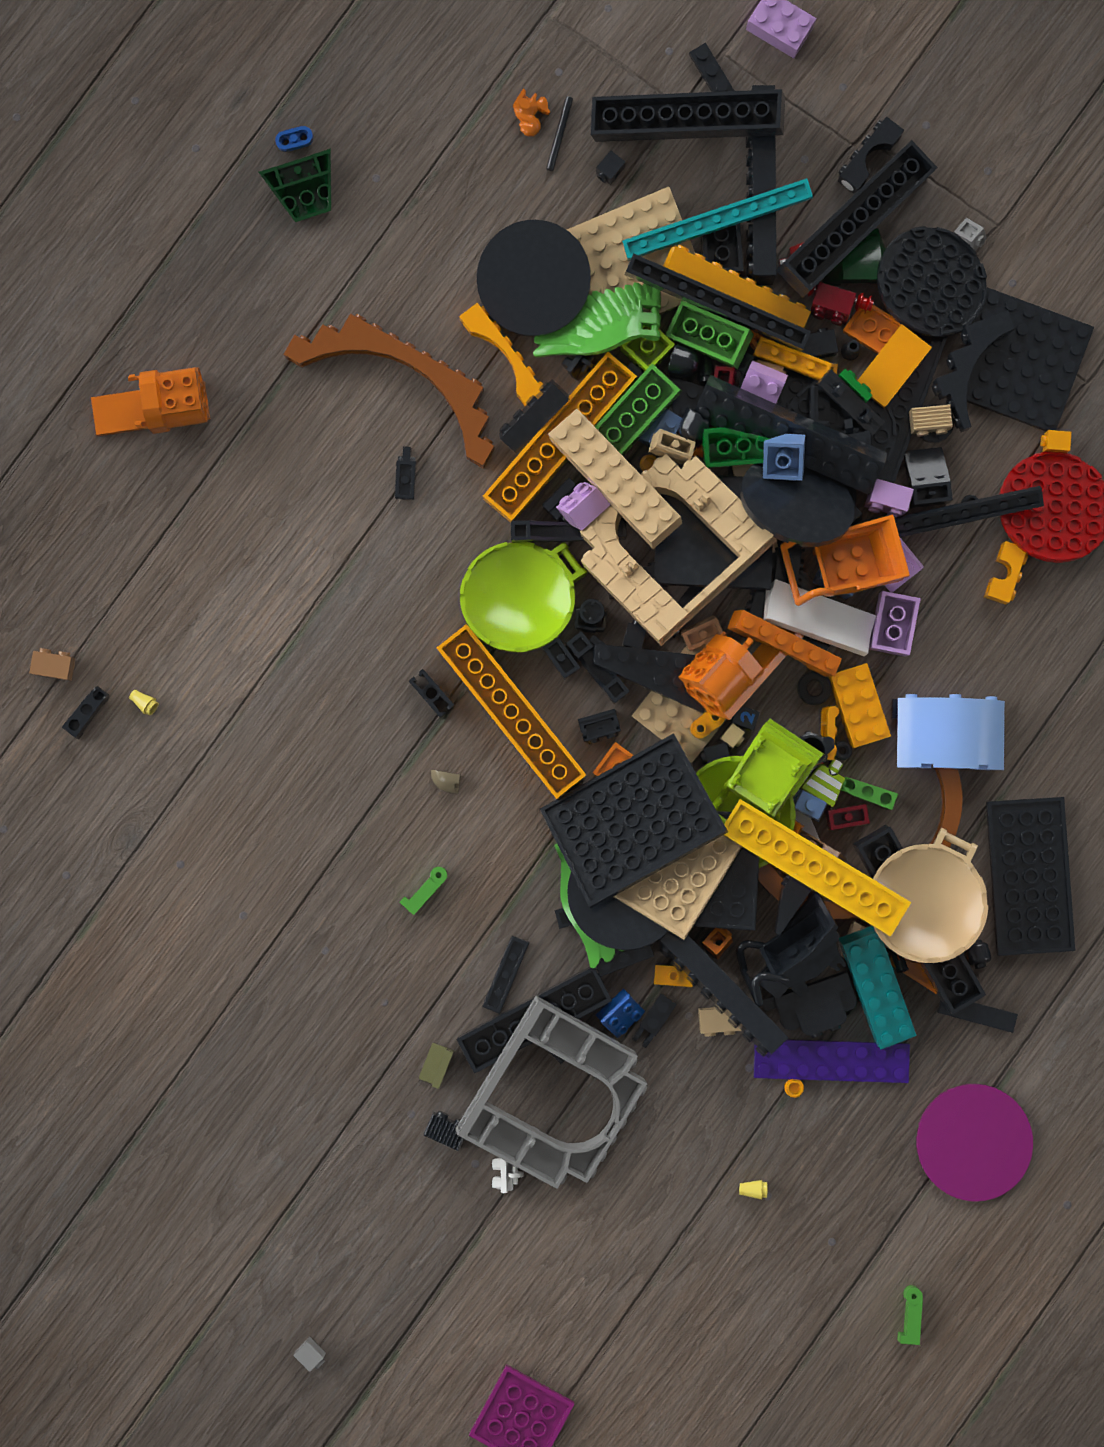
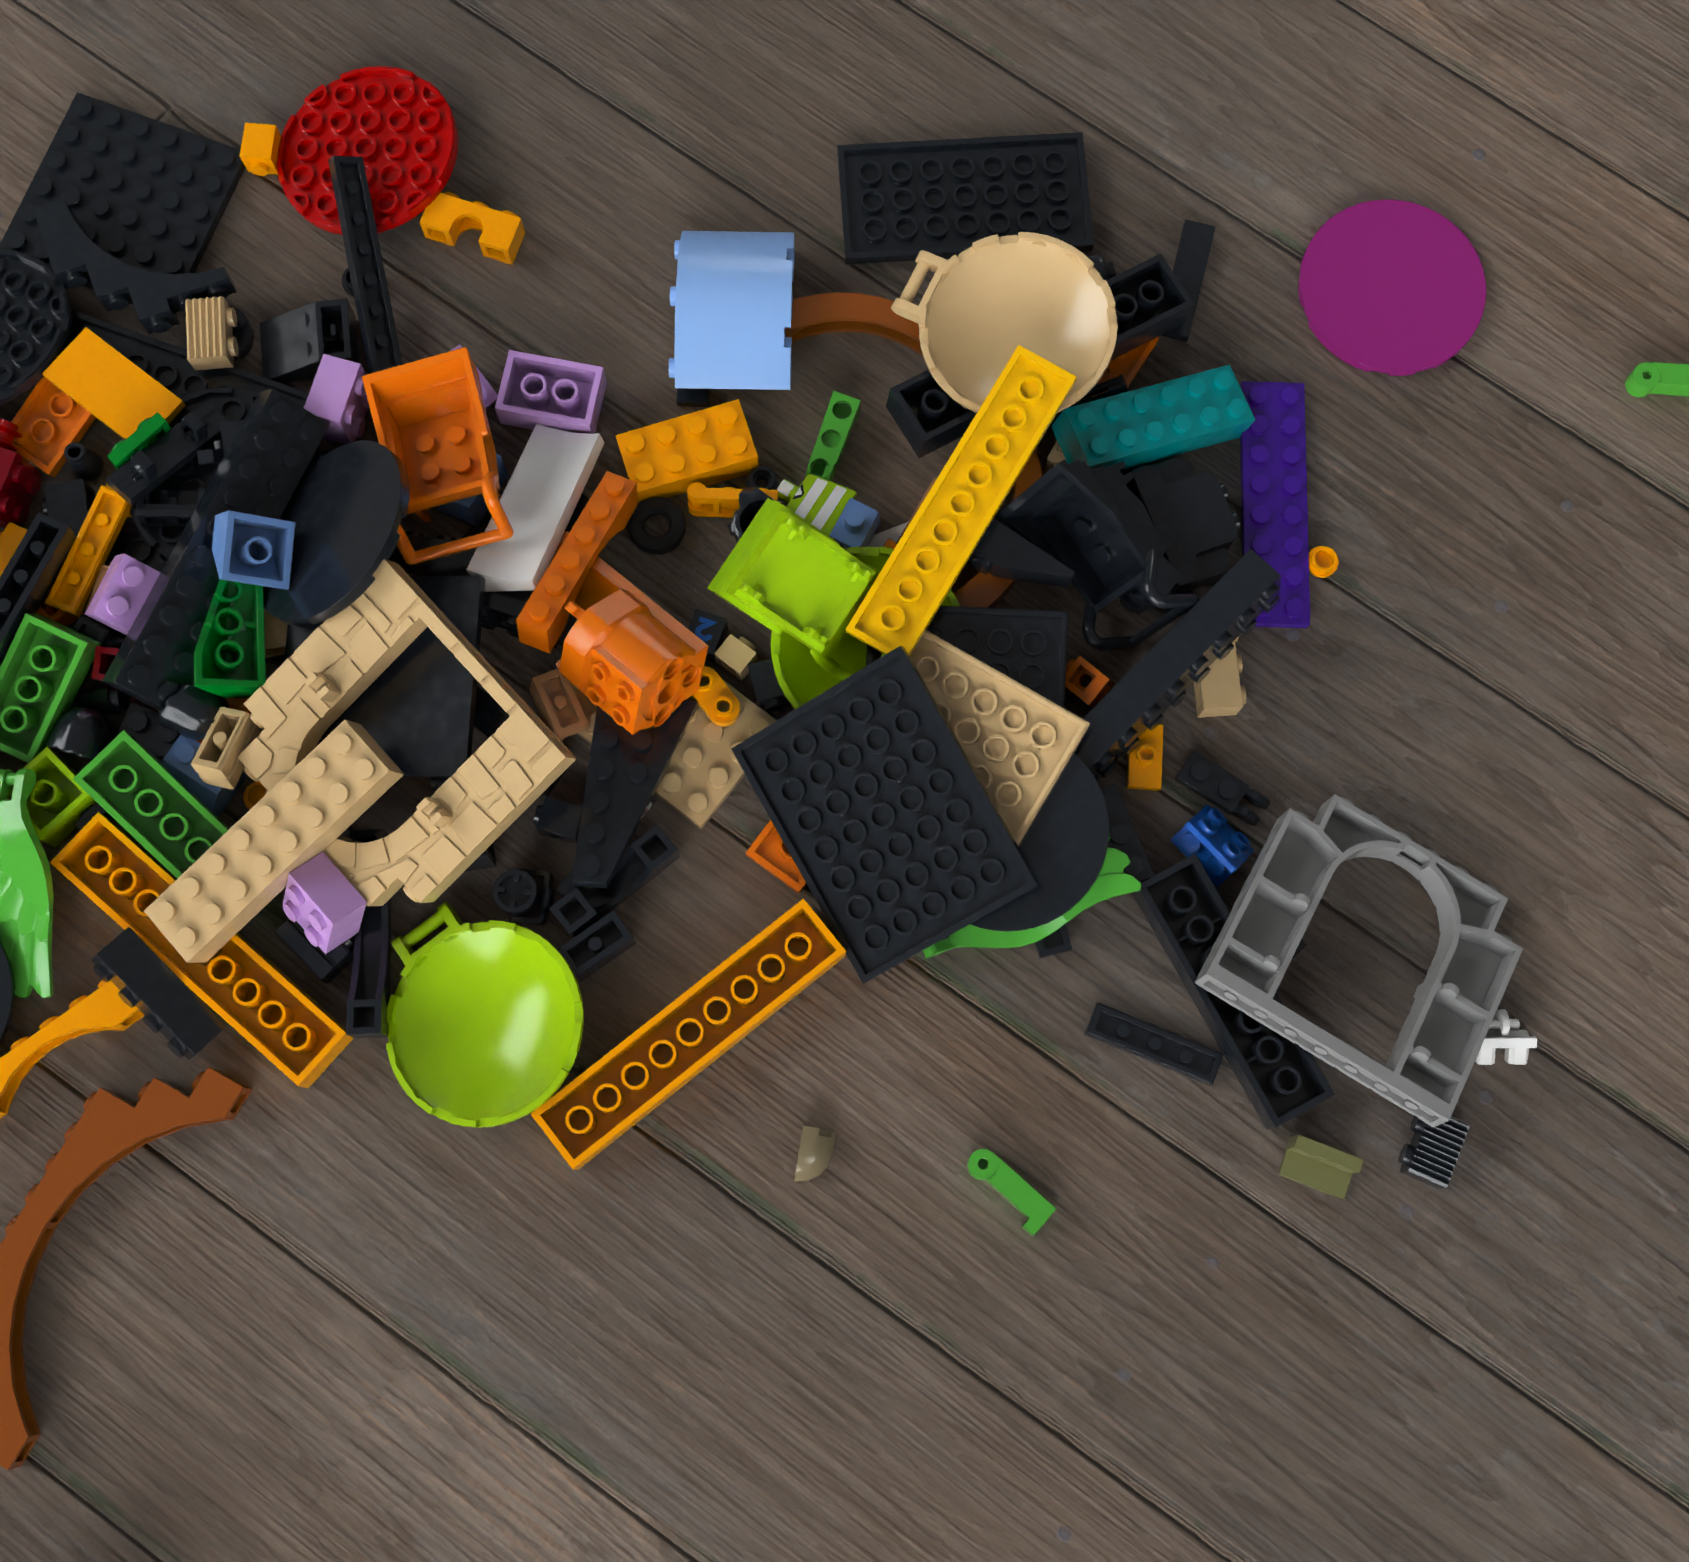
camera: 100 degrees left, 10 degrees down
(405, 475) = (256, 1232): black hinge -> none
(423, 693) = (640, 1177): black piece -> none
(579, 364) = (72, 914): black hips -> none
(599, 725) = (717, 880): black hinge -> none
(754, 1189) = (1494, 624): light yellow cone -> none
(847, 817) = (873, 470): dark red brick -> none

